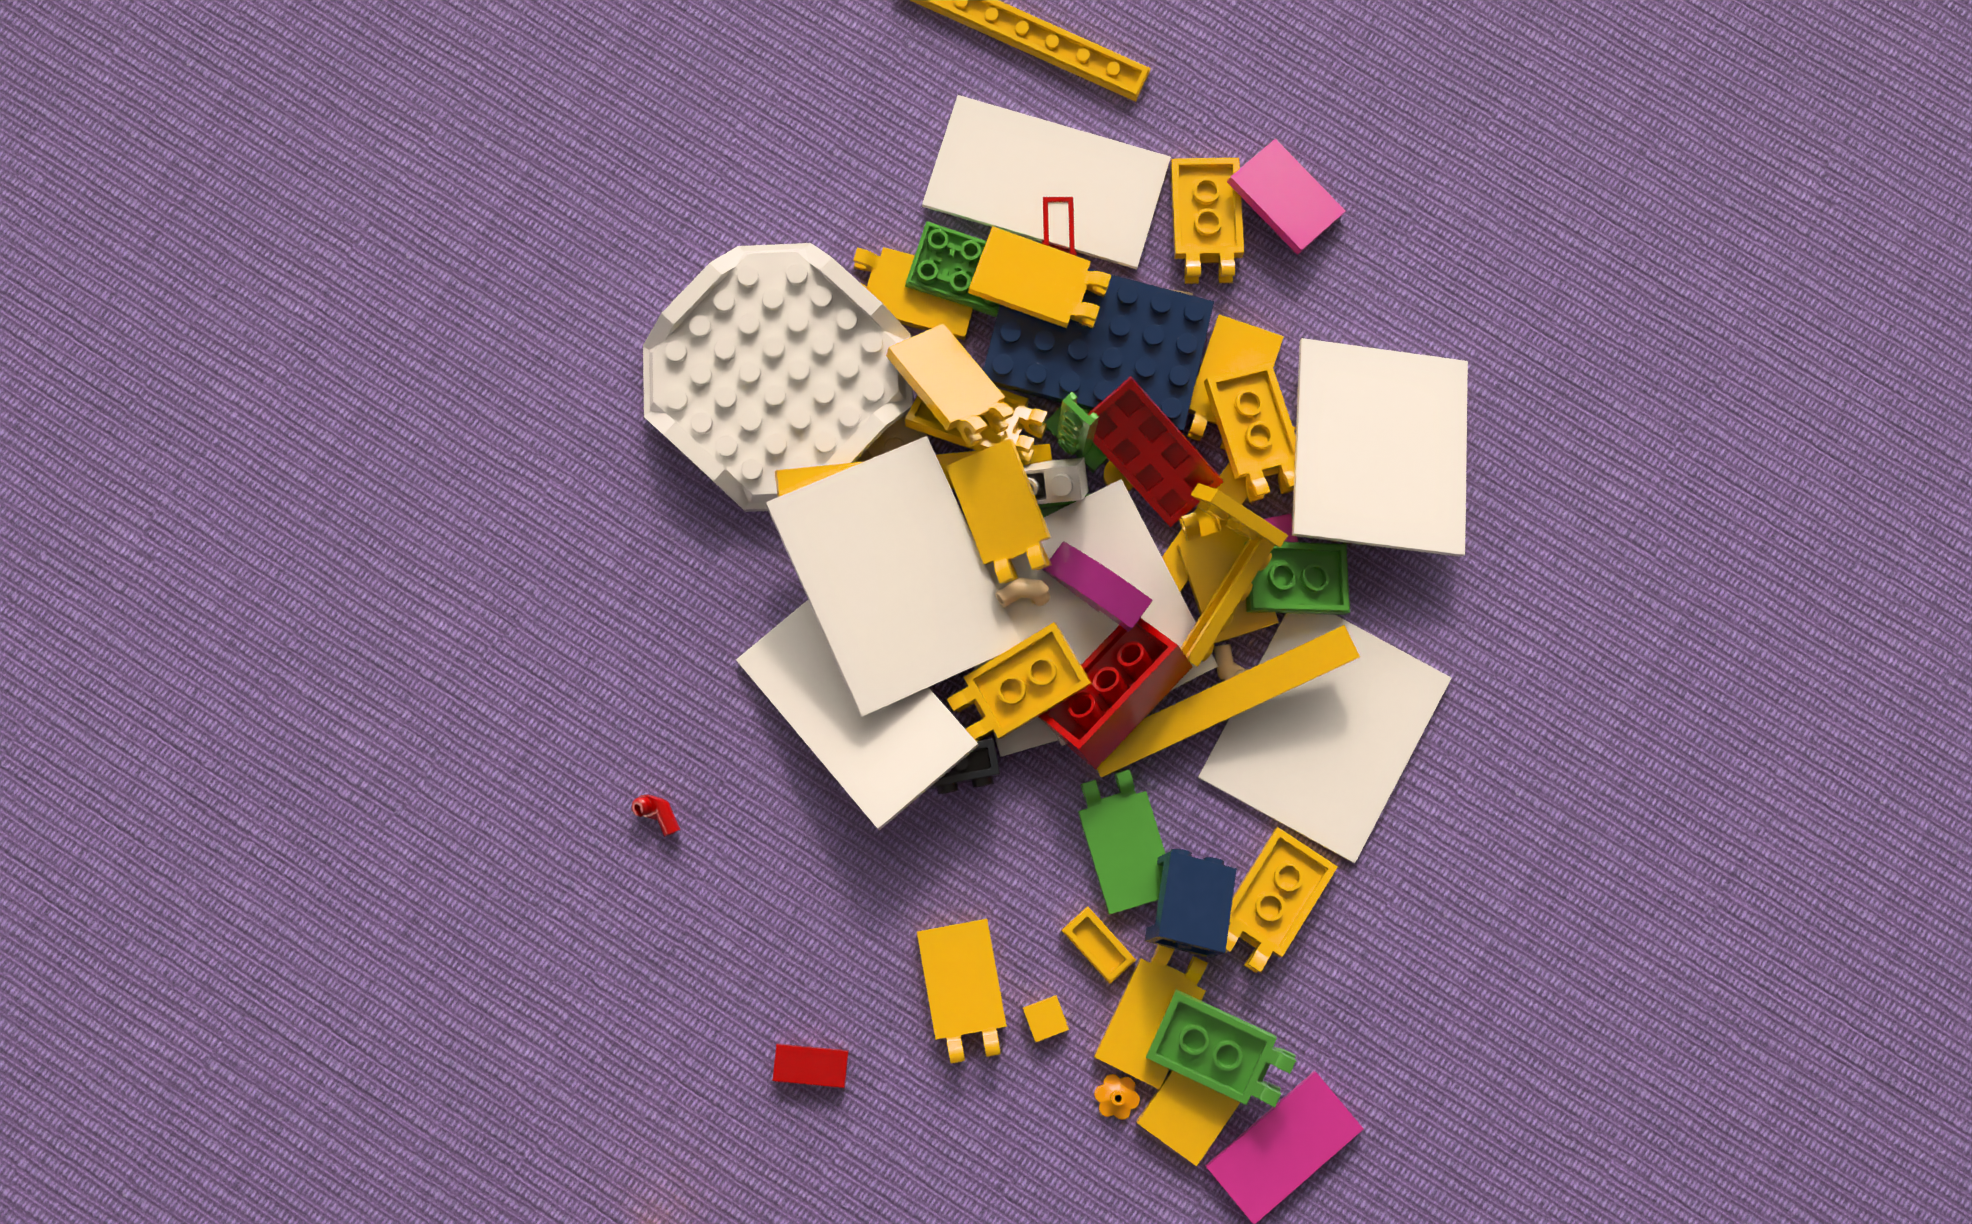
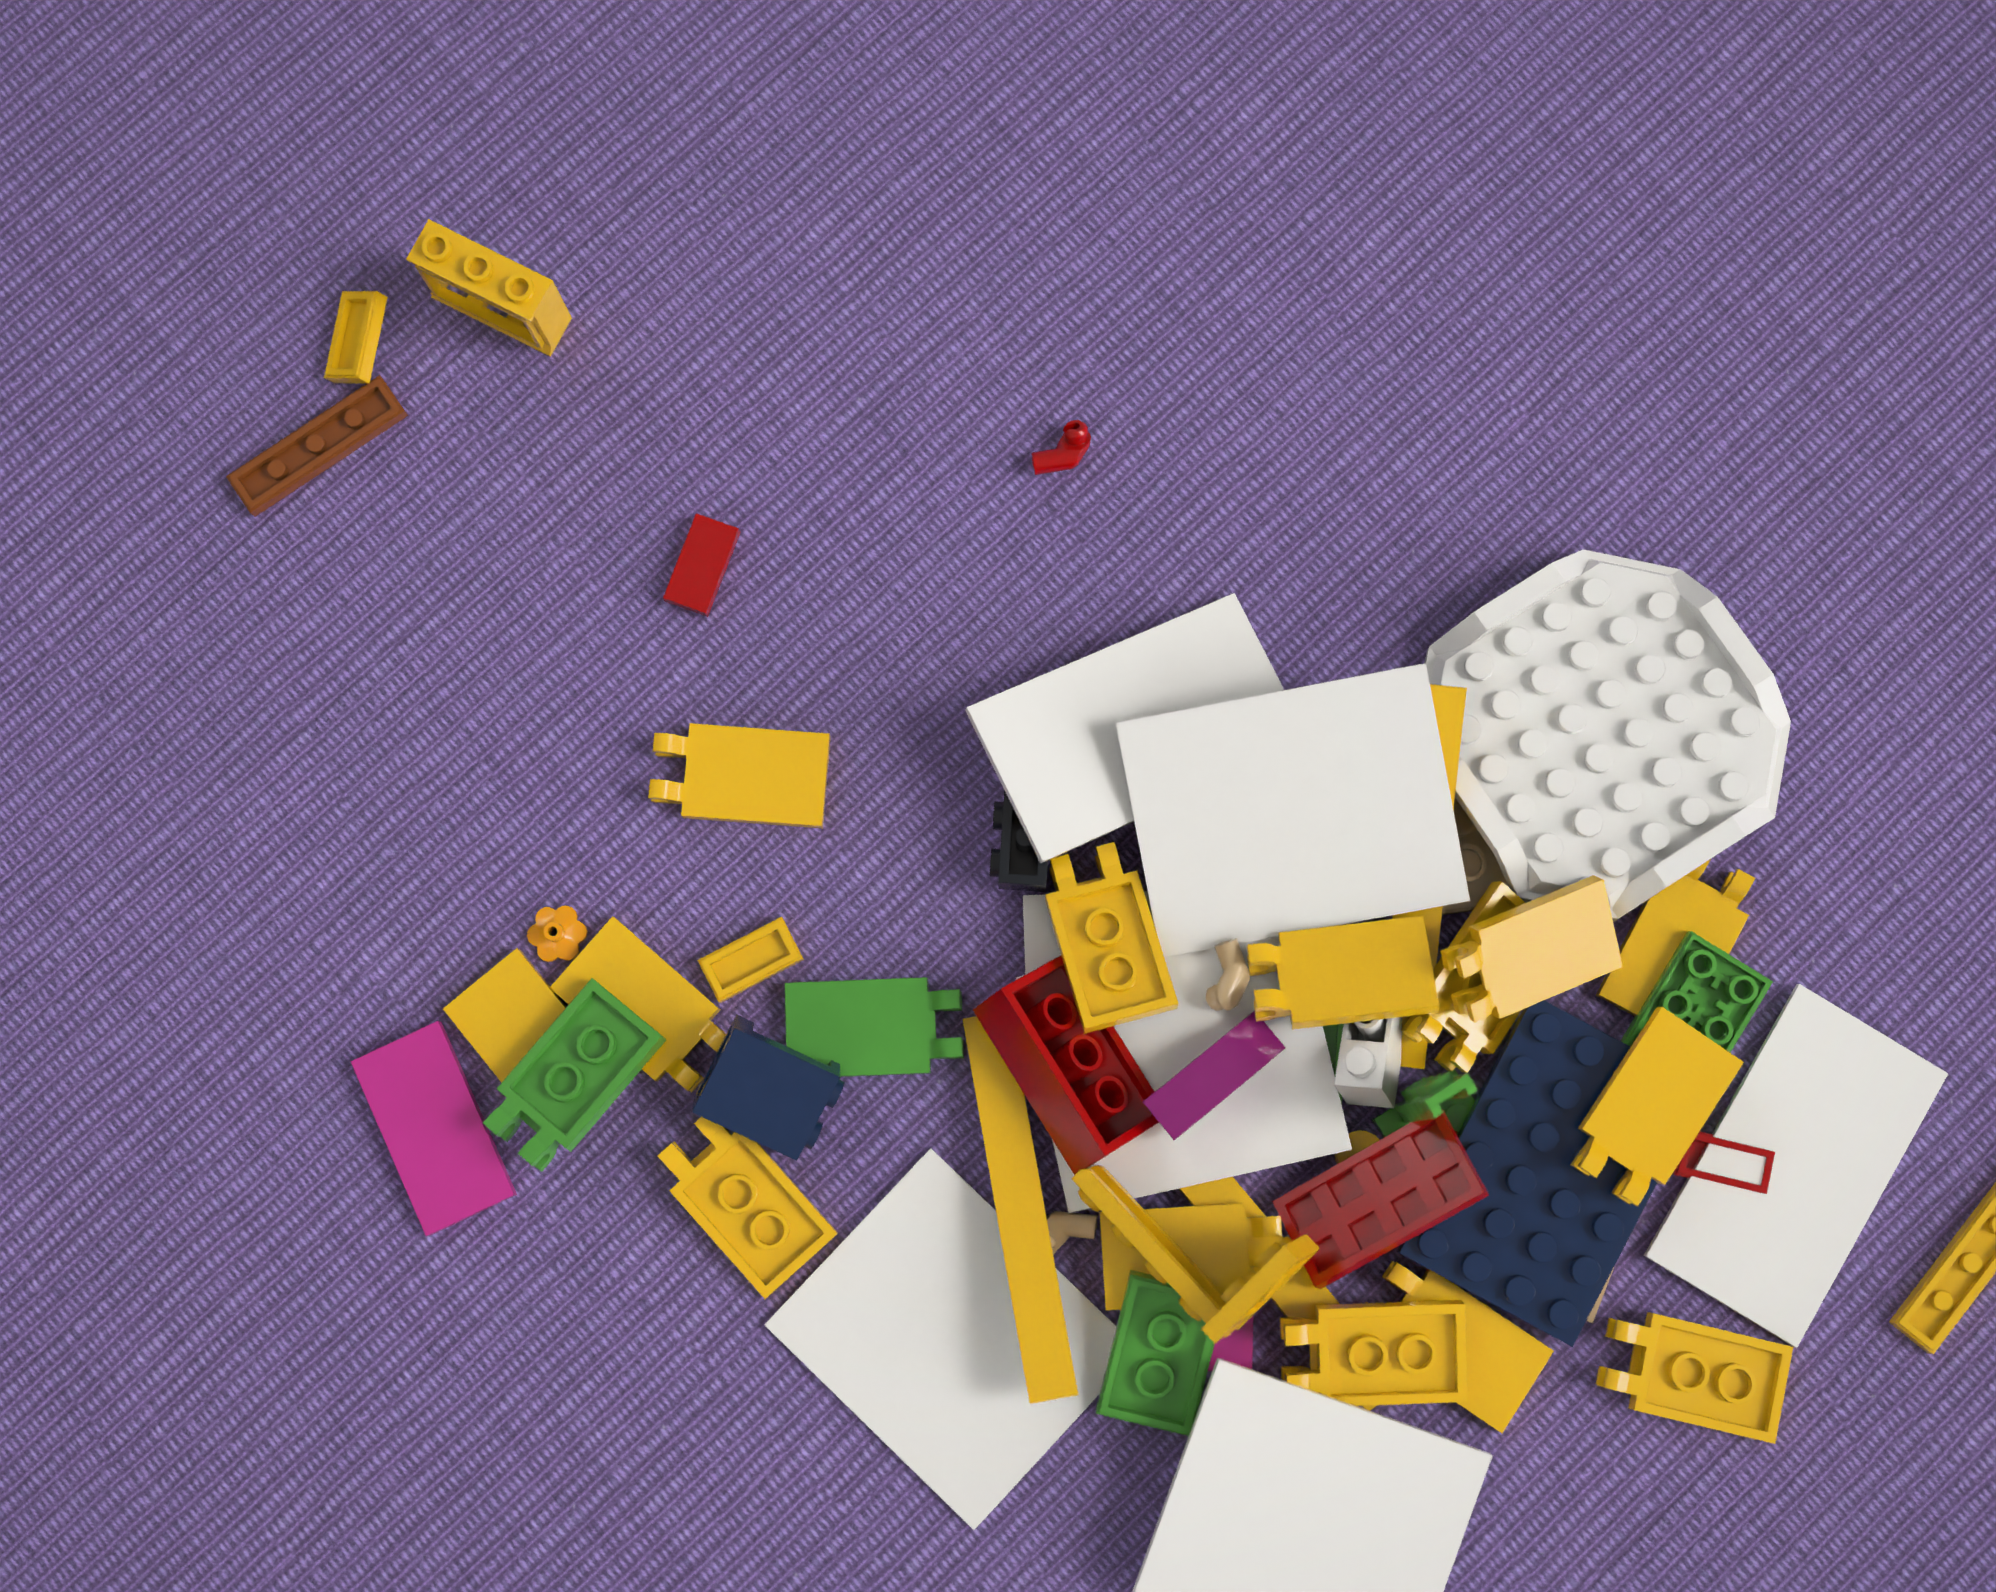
camera: 110 degrees right, 0 degrees up
(1045, 1018) = (677, 868): yellow tile -> none
(1286, 196) = (1703, 1494): tile -> none

